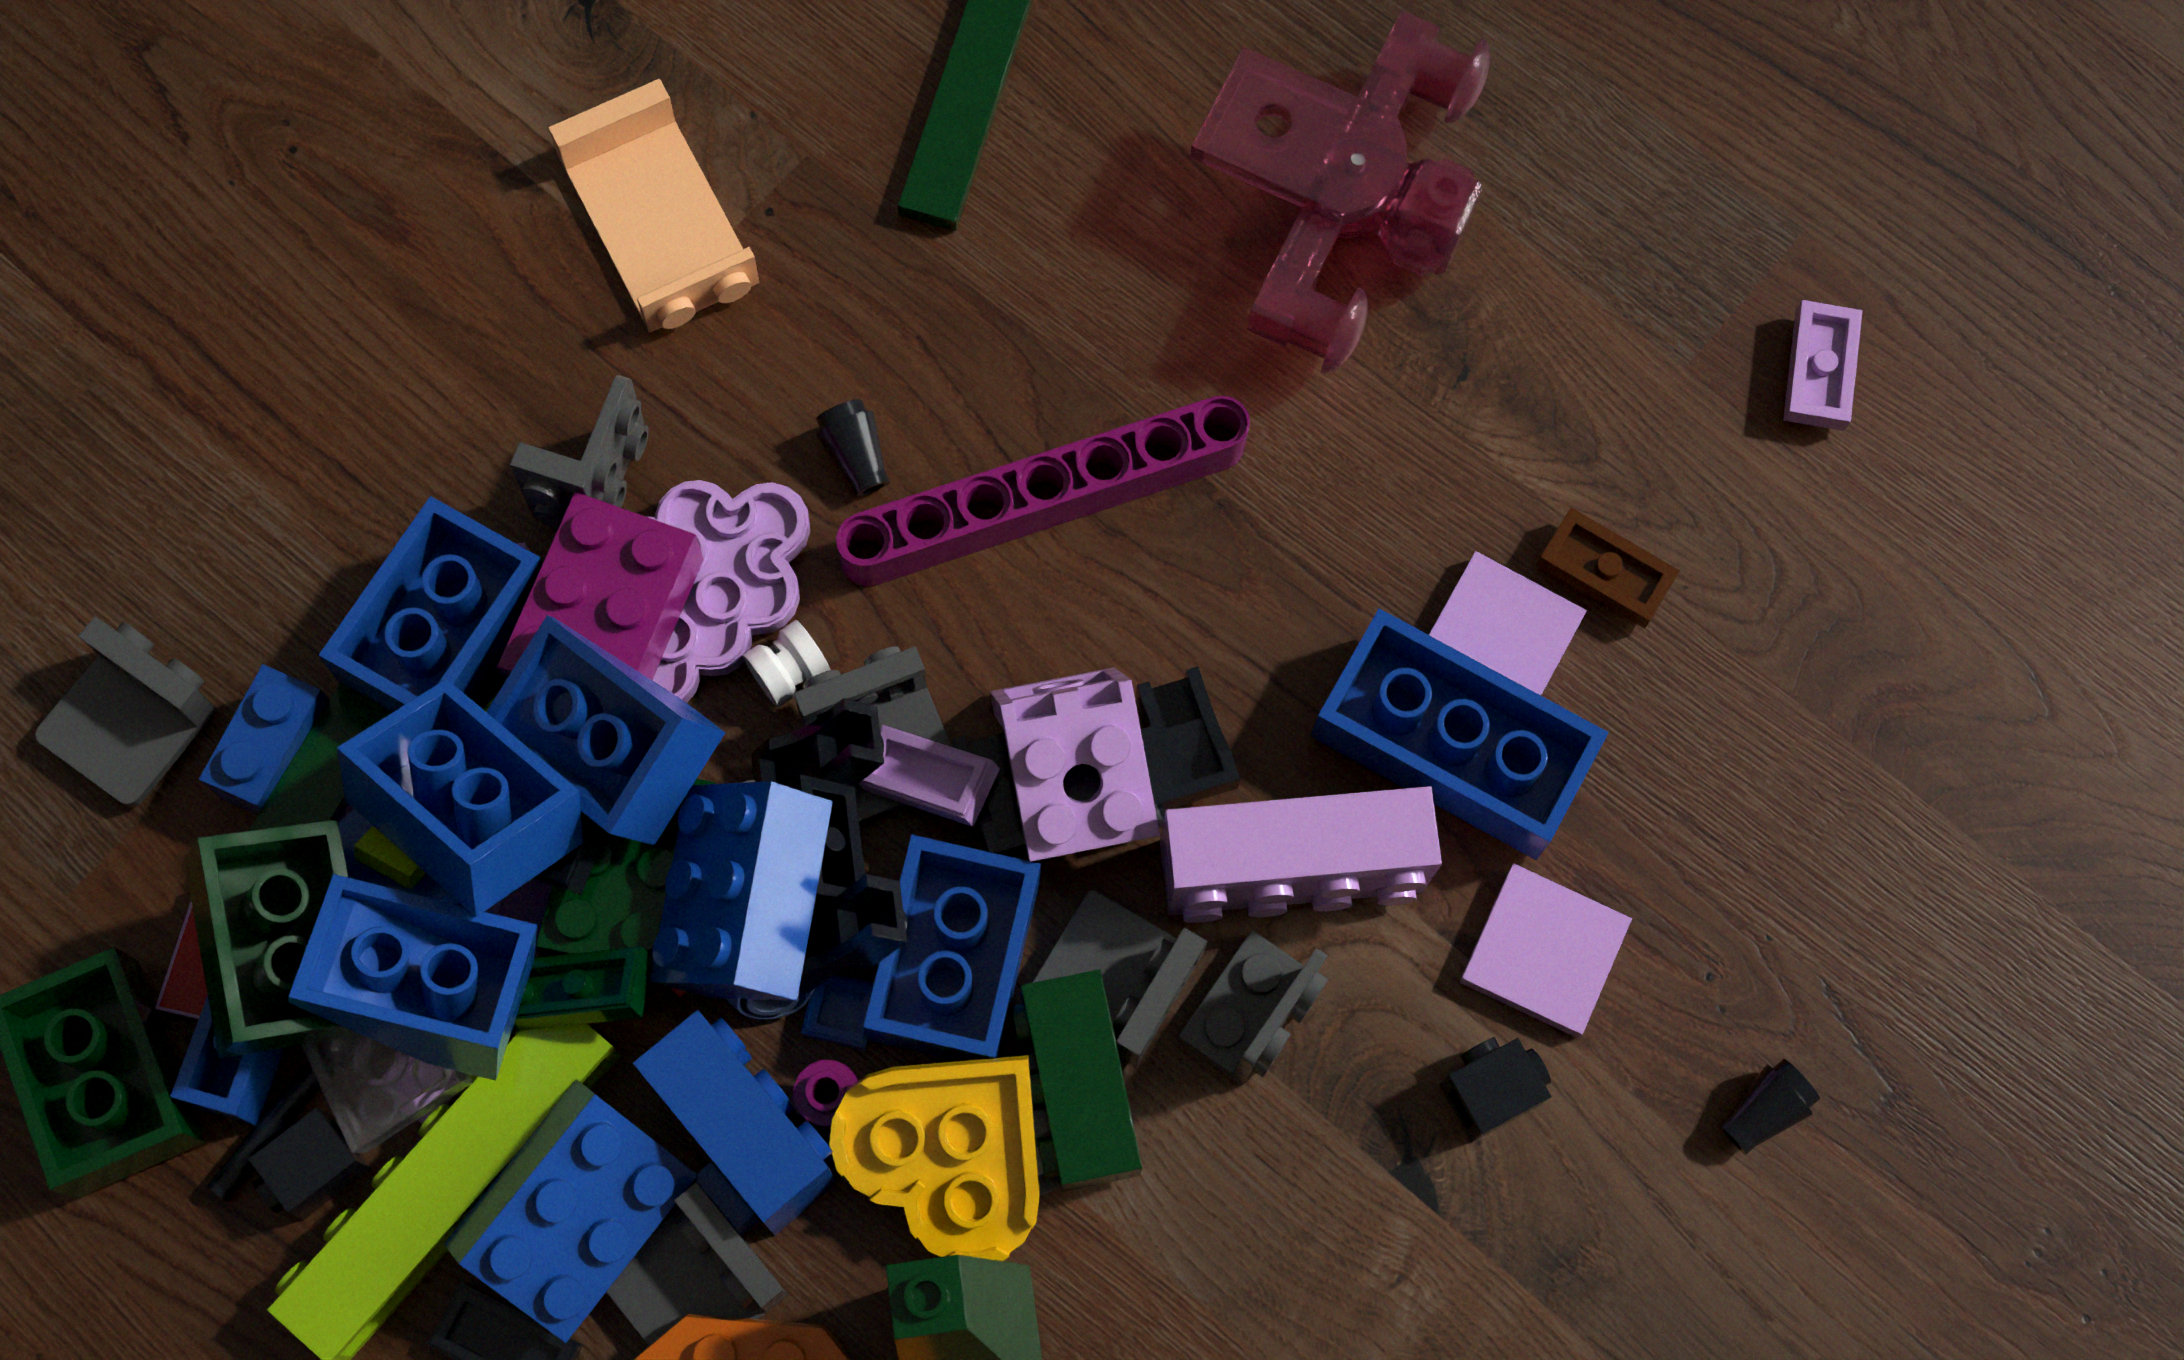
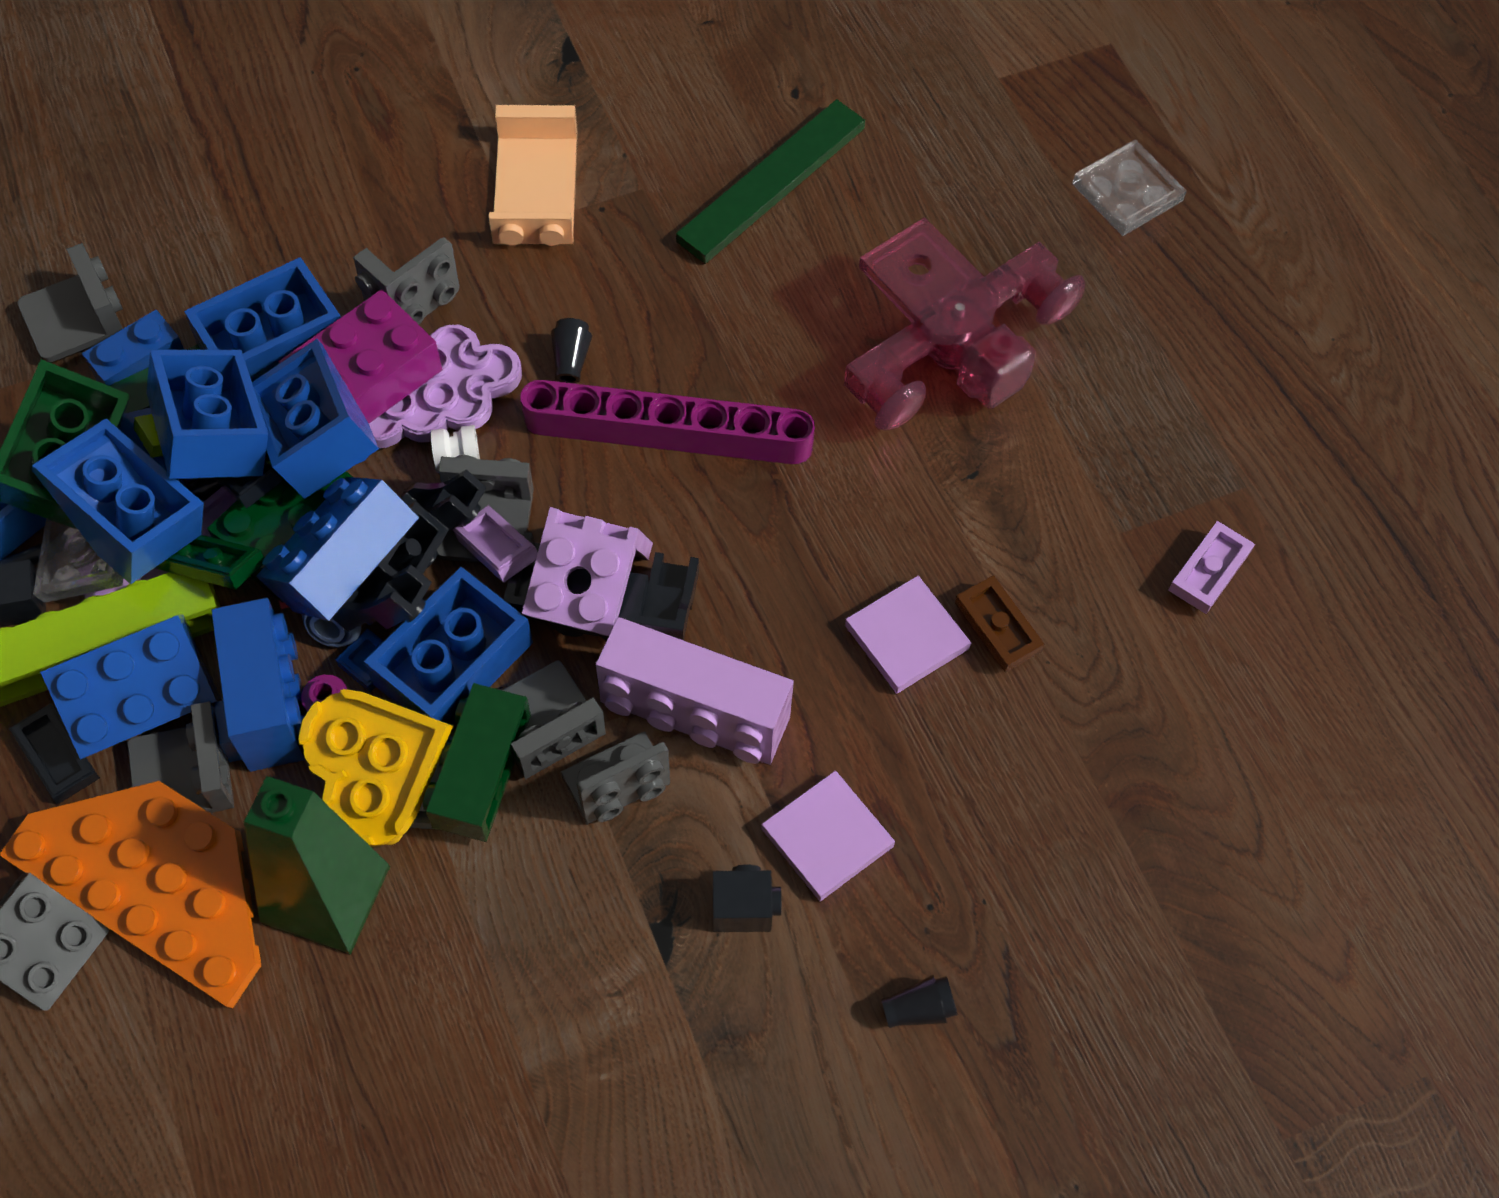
camera: 30 degrees right, 10 degrees down
(1463, 729) = (841, 673): blue brick -> none

